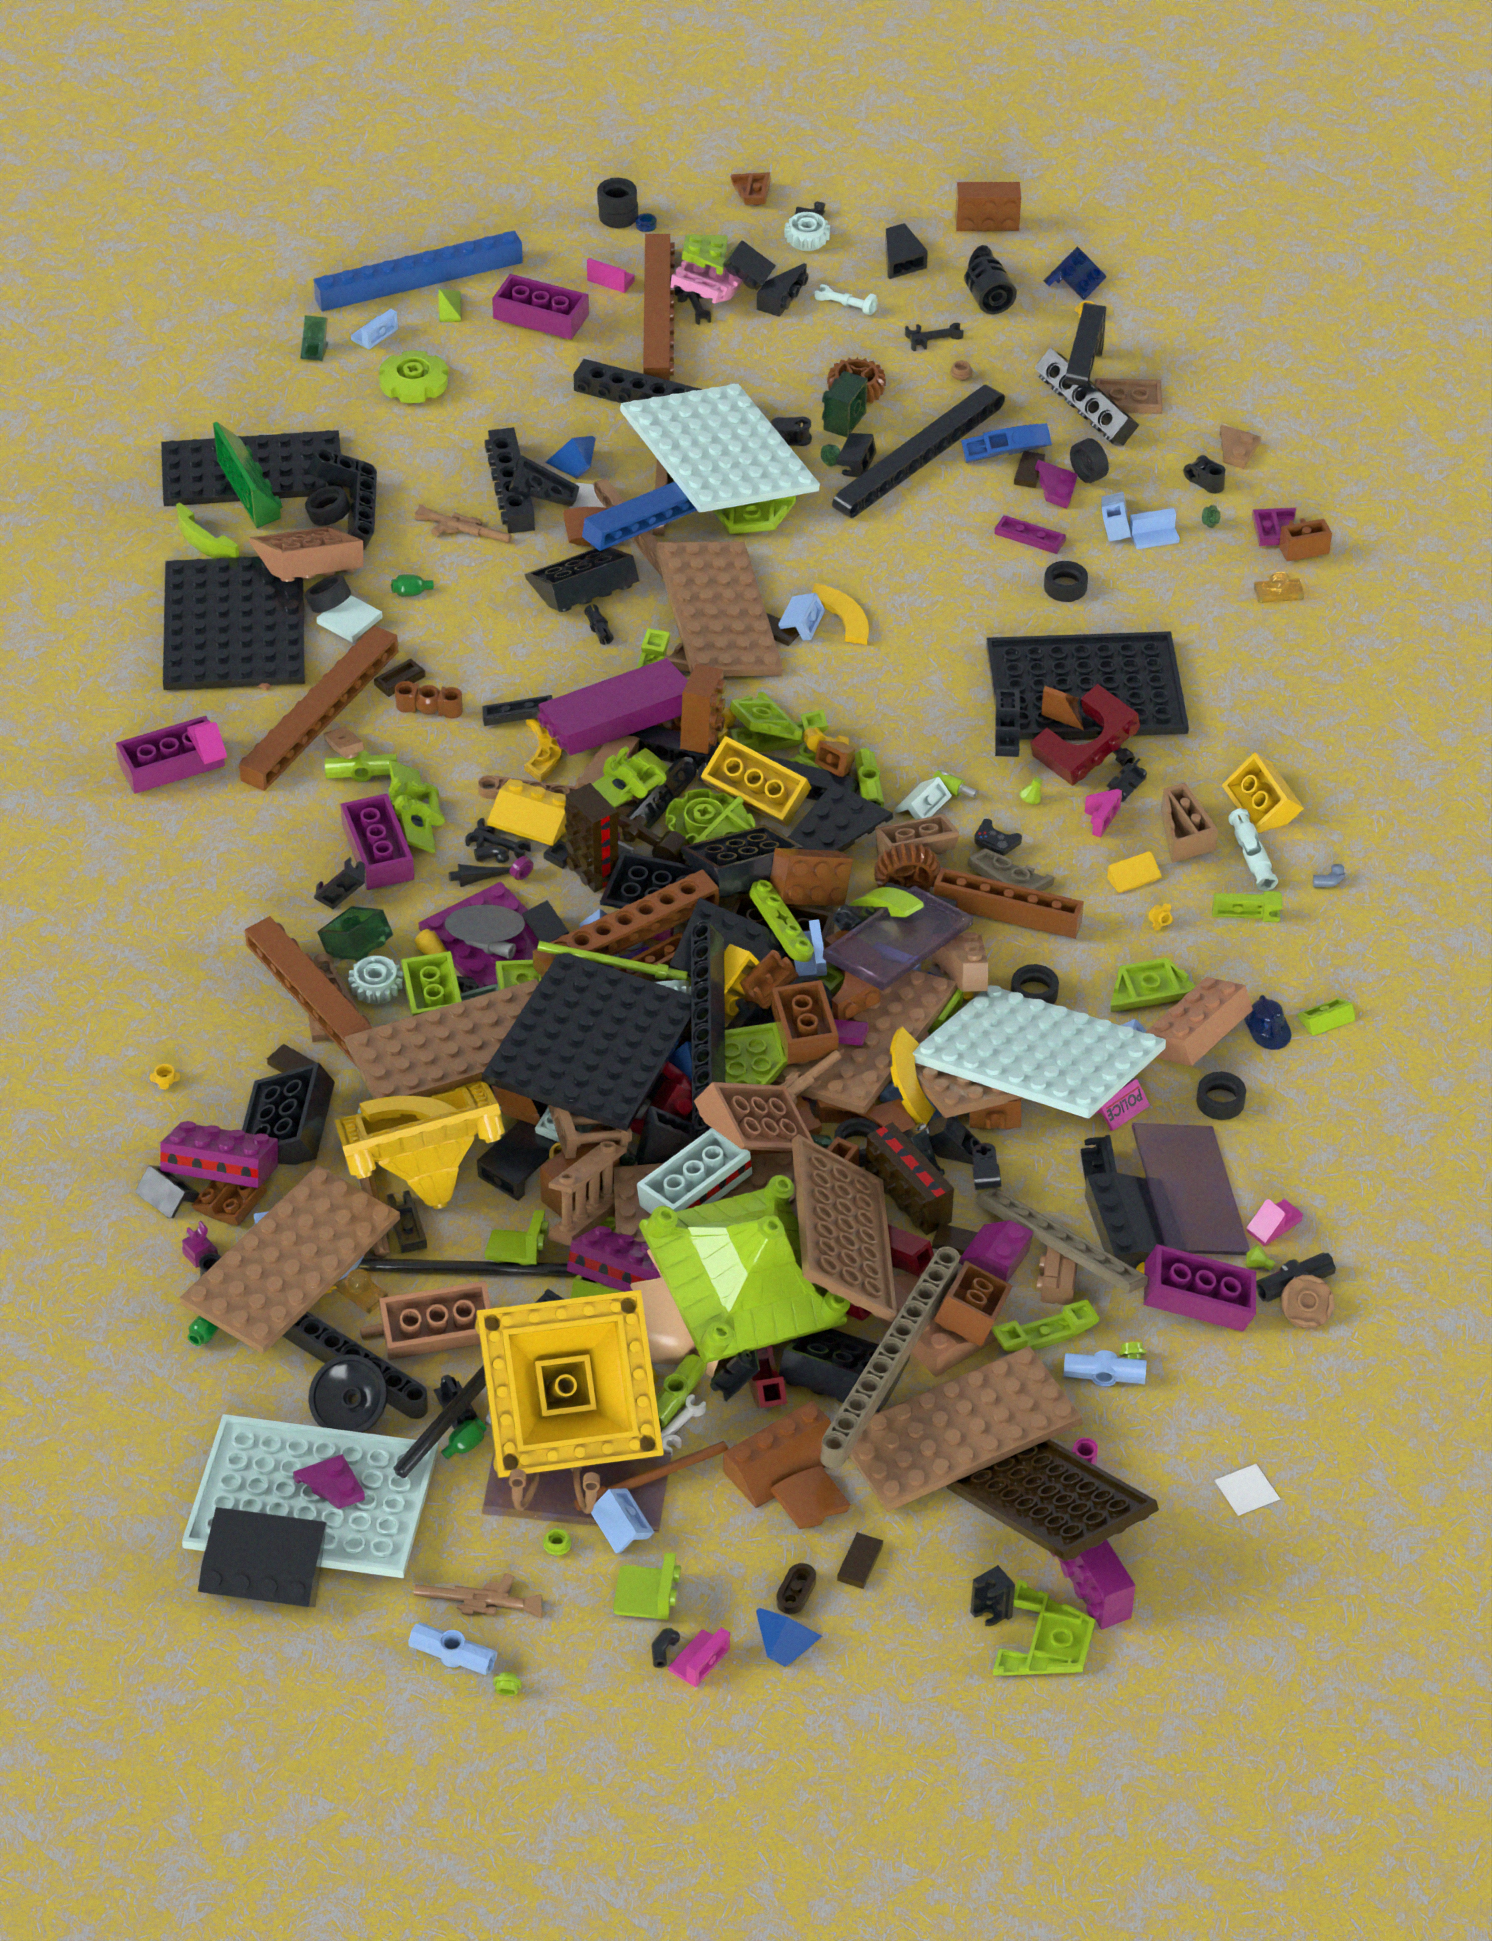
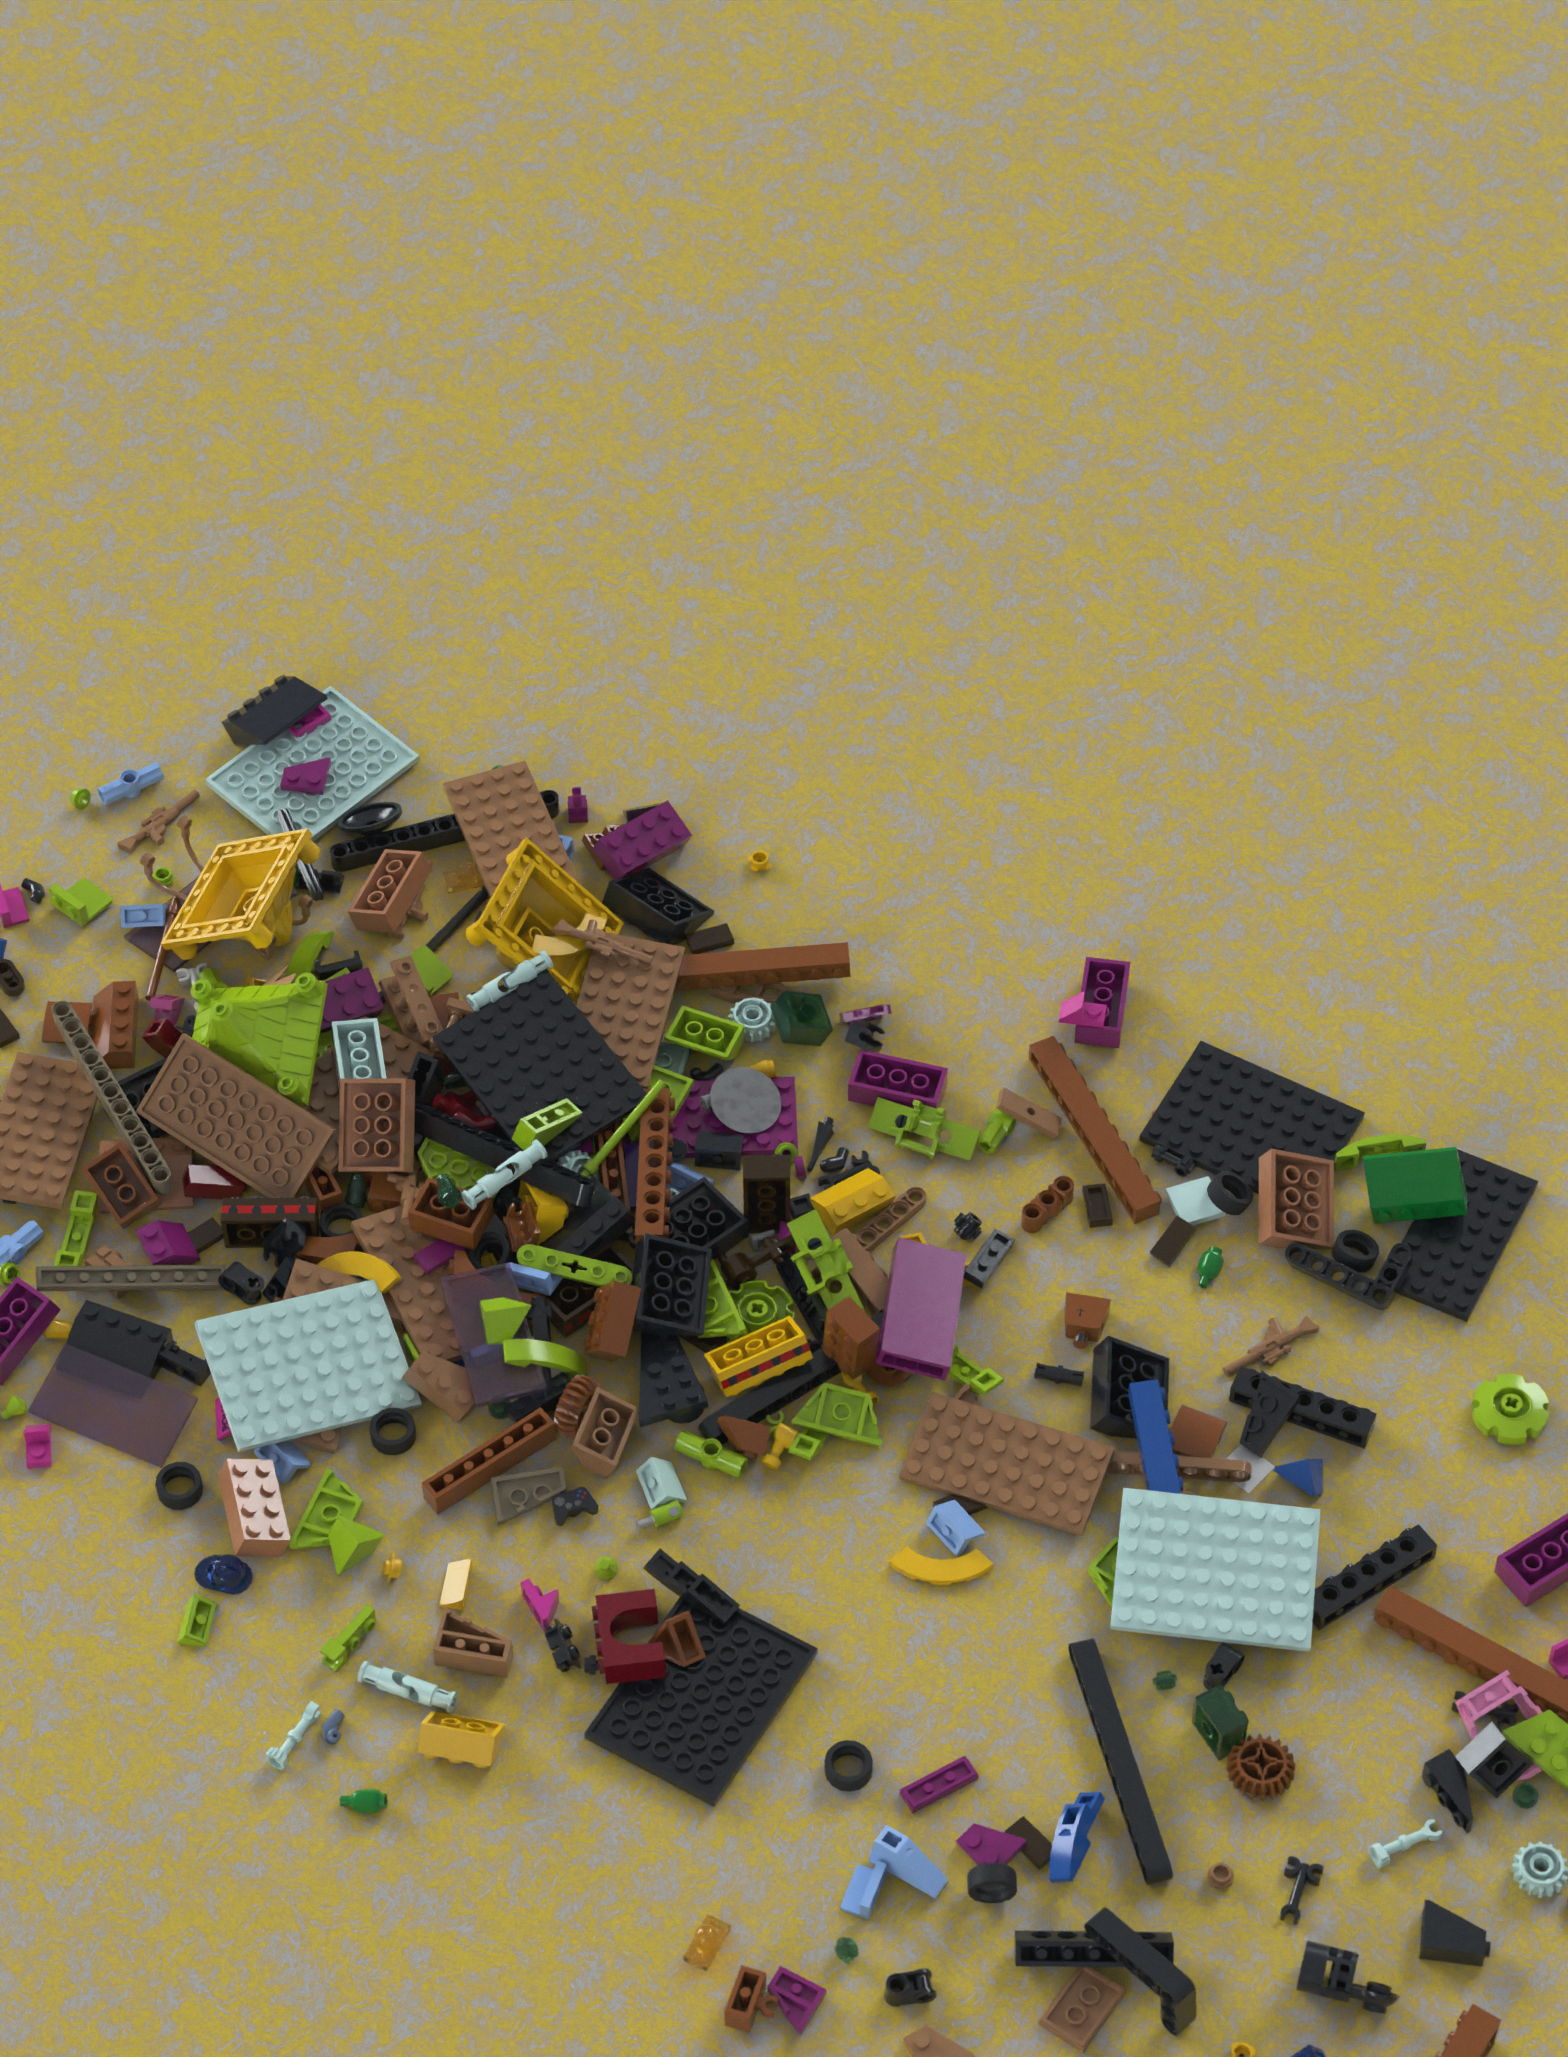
camera: 125 degrees right, 5 degrees up
(306, 900) = (872, 1013): none -> wing
(313, 641) = (1183, 1165): none -> black bar
(397, 1086) = (597, 940): none -> medium nougat piece
(404, 612) = (1173, 1241): none -> dark brown tile
(496, 734) = (967, 1226): none -> black gear
(513, 884) = (787, 1146): none -> lime plate
(531, 629) = (1085, 1318): none -> dark orange torso
(534, 1095) = (522, 973): none -> light aqua piece
(663, 990) = (545, 1123): none -> lime slope
(722, 1423) = (167, 1007): none -> dark pink slope
(729, 974) = (492, 1183): none -> light aqua piece
(798, 1009) = (448, 1193): none -> clear green cone
(857, 454) = (1149, 1702): black hinge -> none
(880, 929) = (502, 1318): none -> lime slope
(1168, 940) = (351, 1543): none -> lime slope
(1336, 894) = (278, 1757): none -> light aqua piece
(1368, 823) = (365, 1801): none -> green plant

